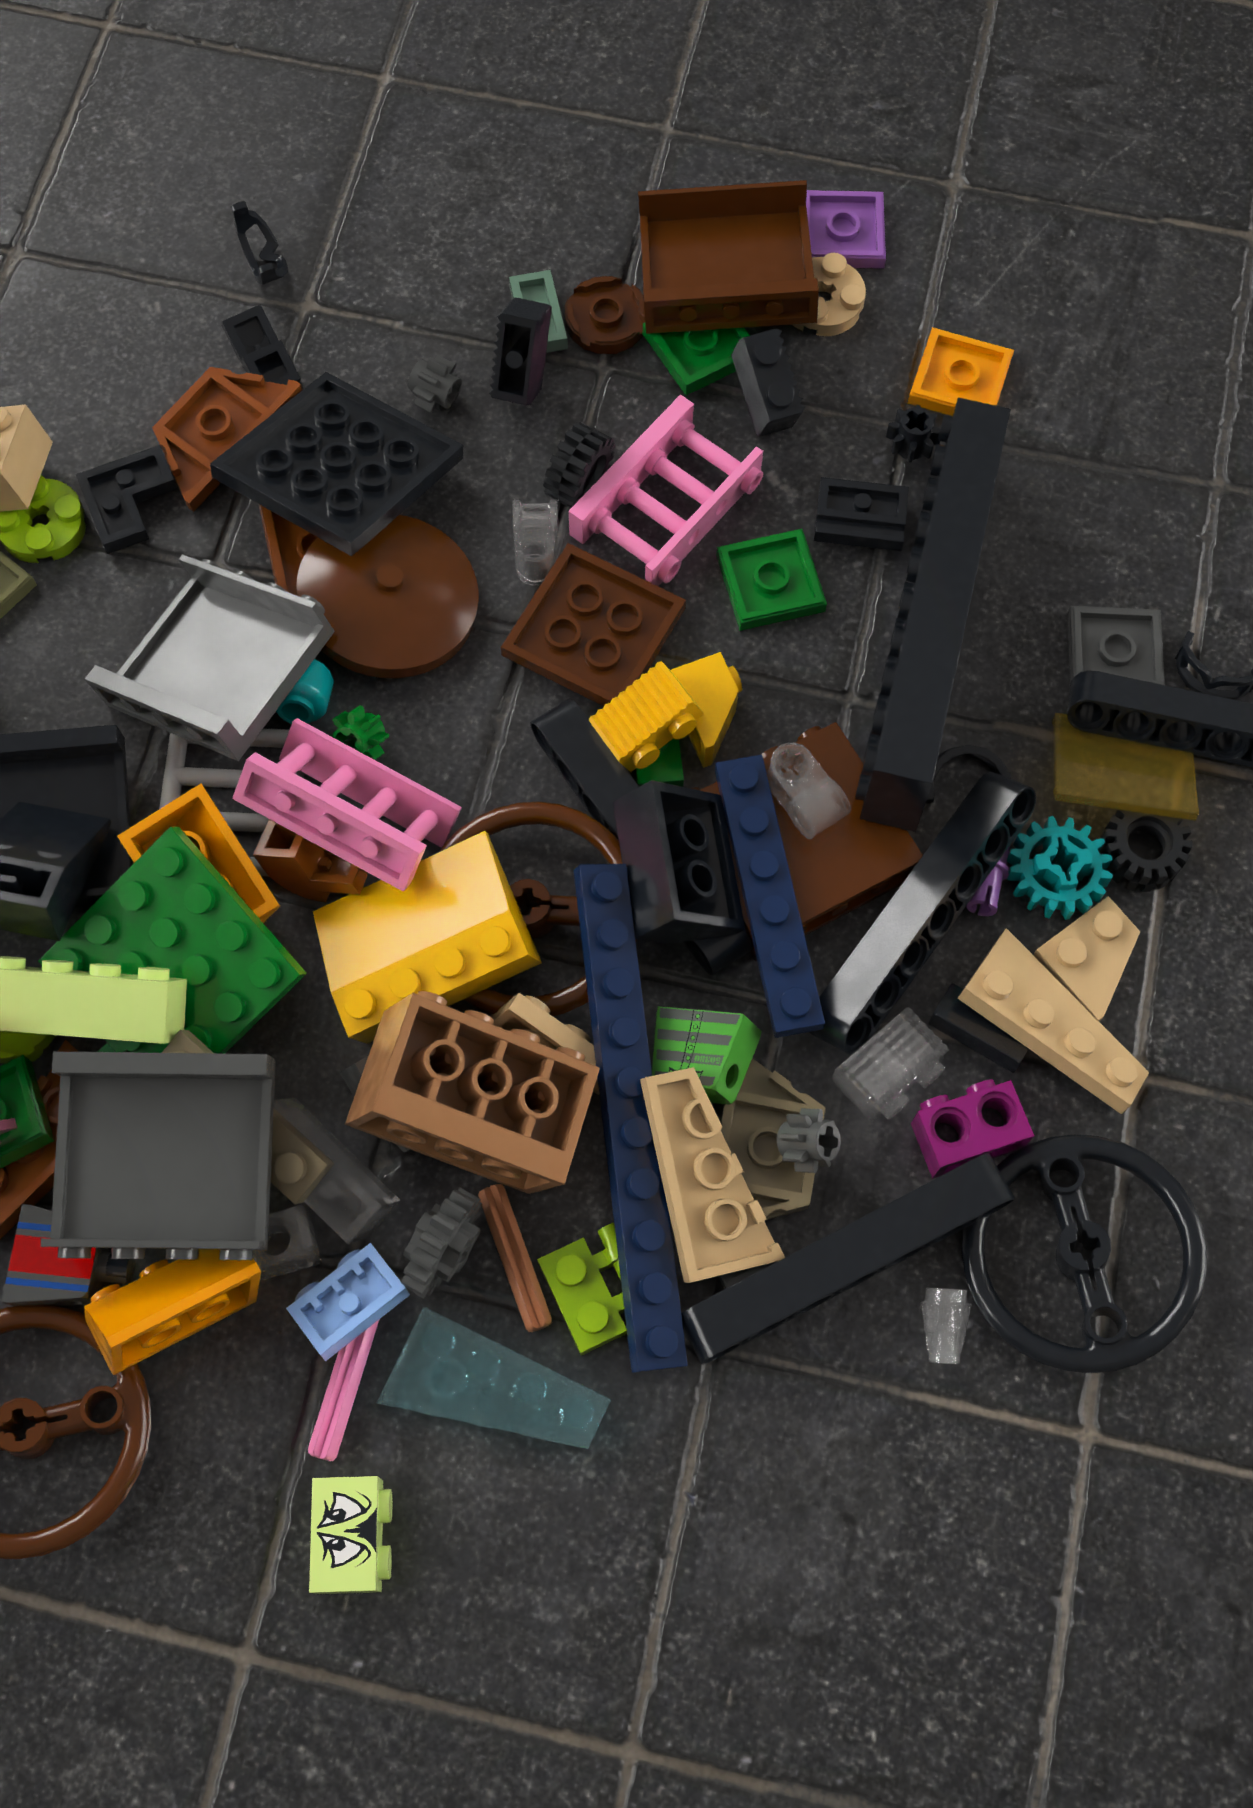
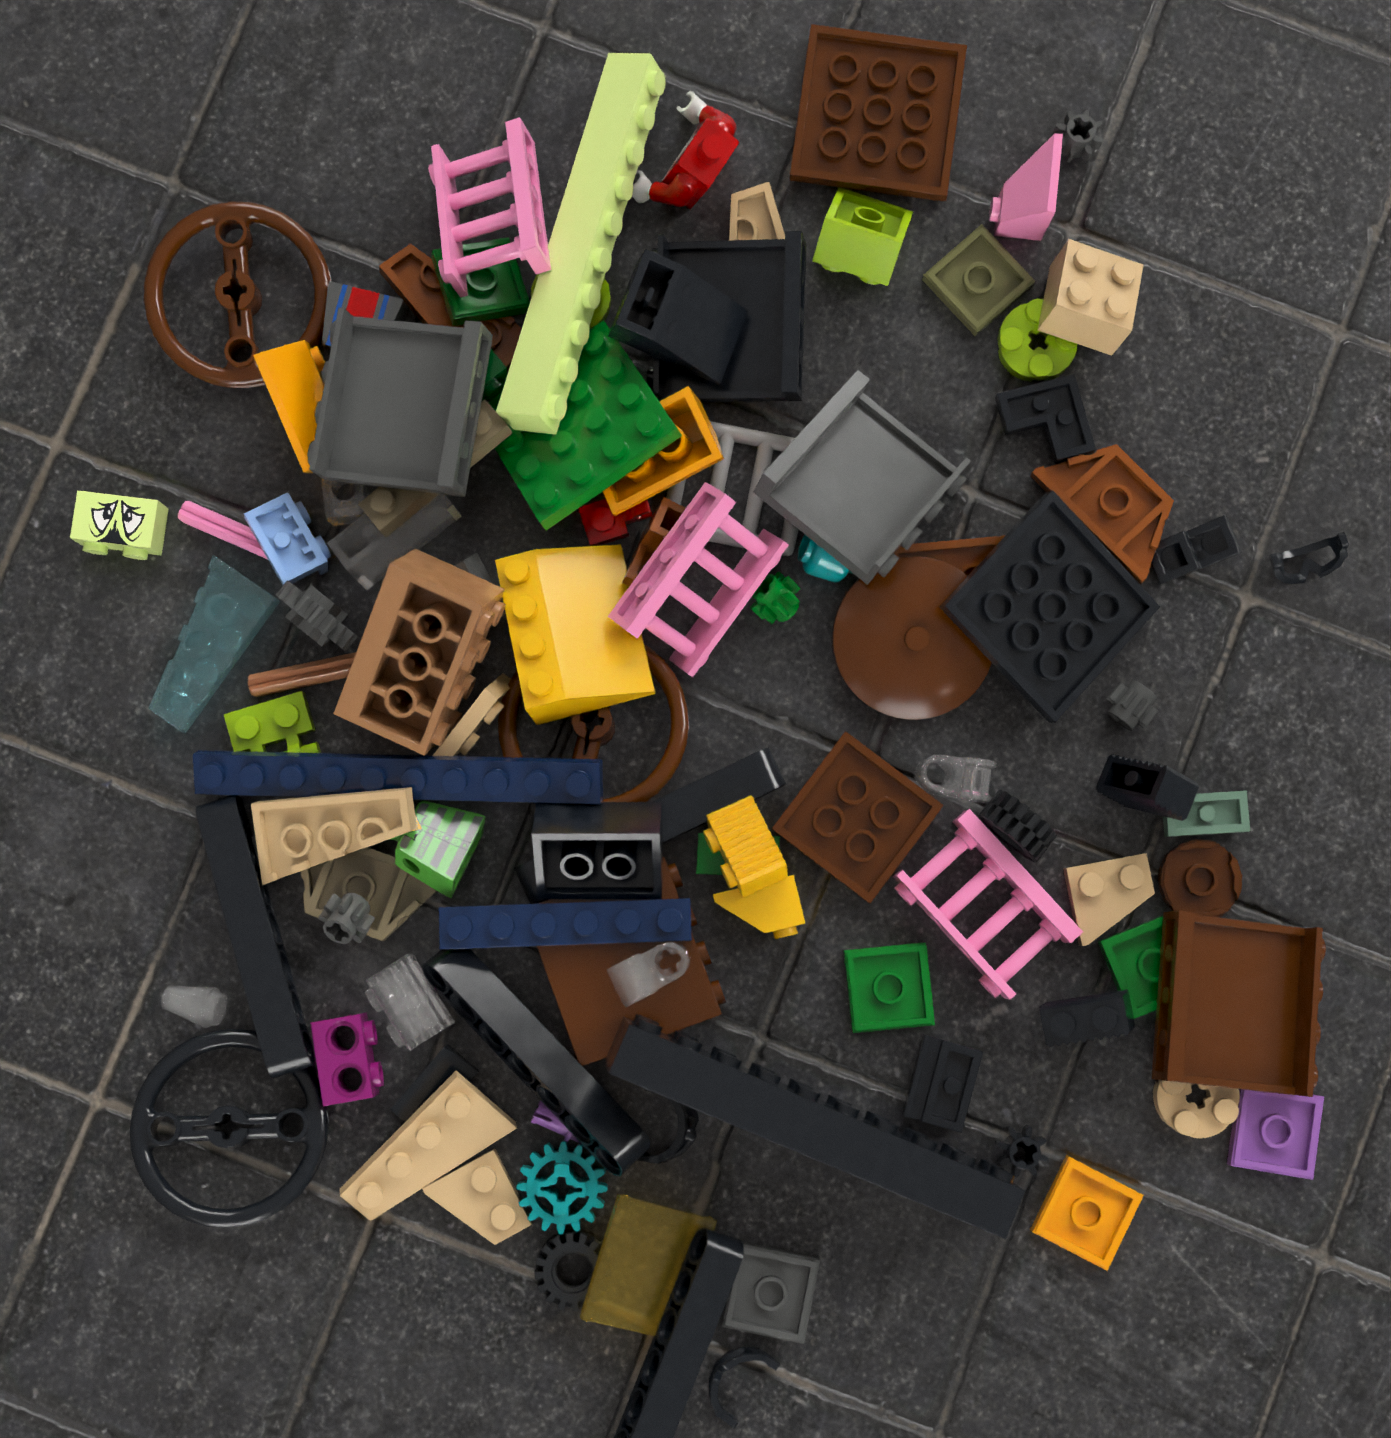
camera: 100 degrees right, 15 degrees up
(291, 931) = (605, 527): none -> red plate
(630, 390) = (1107, 893): none -> tan wing

